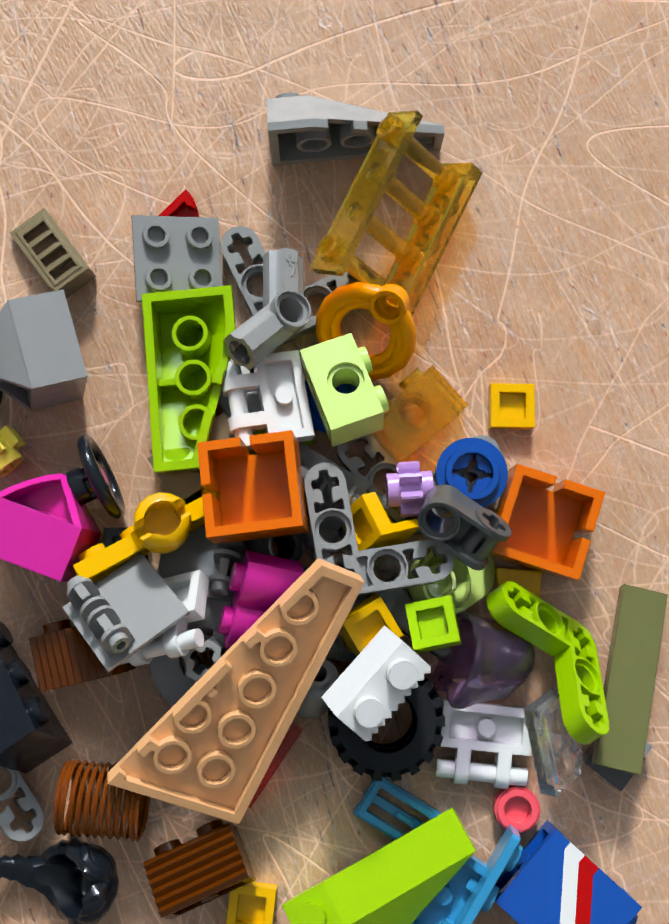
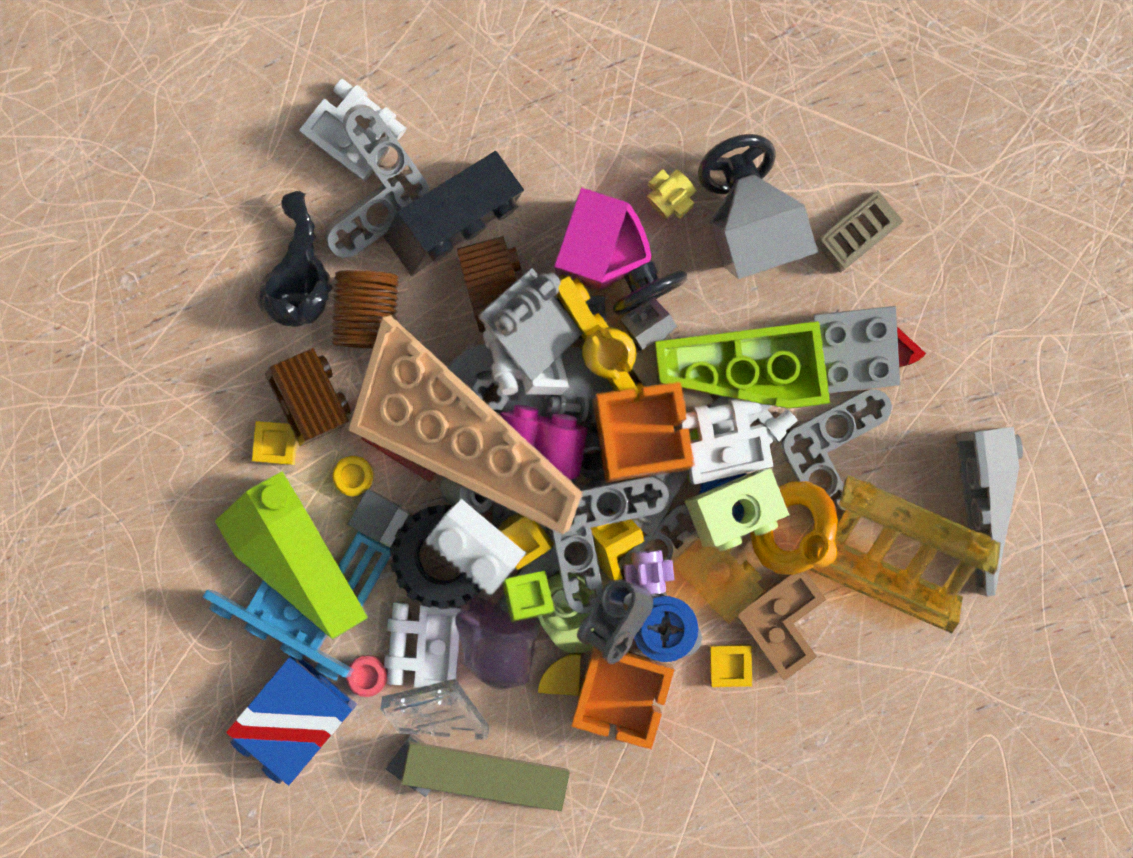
camera: 90 degrees right, 5 degrees up
(135, 478) = (648, 324): none -> light grey bracket
(282, 314) = (823, 450): light grey piece -> none
(292, 817) = (353, 475): none -> yellow tile
(339, 791) = (378, 518): none -> dark grey piece
(466, 359) = (772, 621): none -> medium nougat plate
(573, 652) = (508, 723): lime beam -> none

